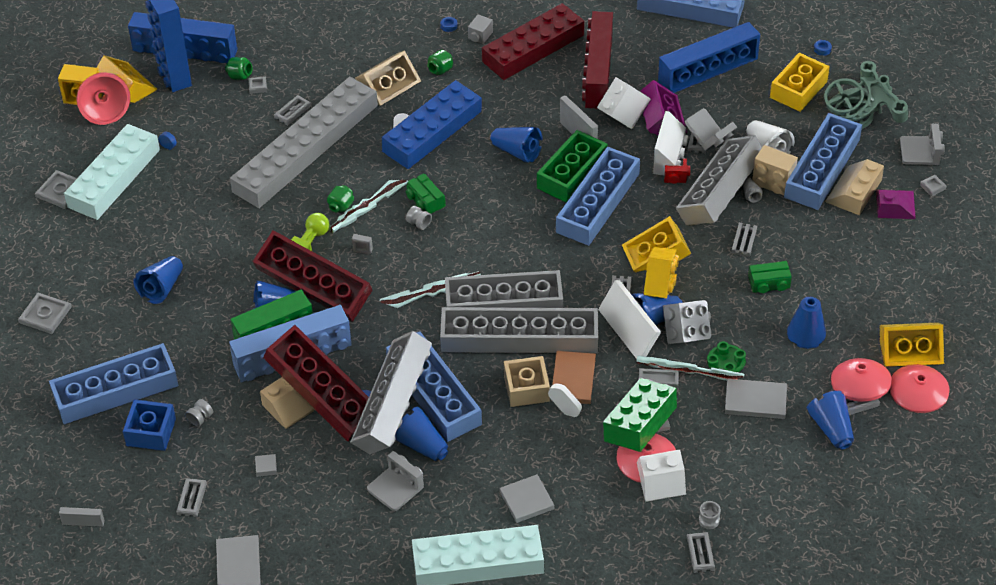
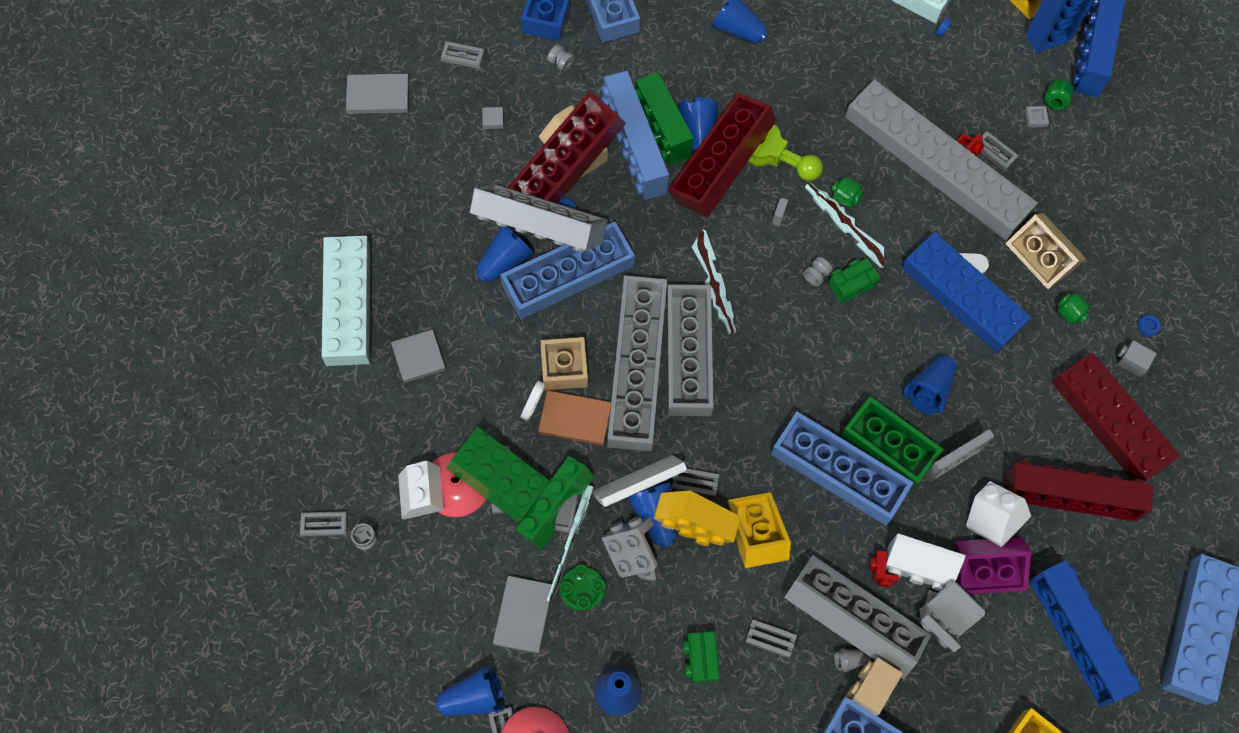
camera: 90 degrees right, 20 degrees up
(291, 118) = (974, 145): none -> red bracket
(397, 483) = (449, 231): light grey bracket -> none
(644, 367) = (539, 522): none -> green arch
(771, 135) = (934, 693): white cone -> none

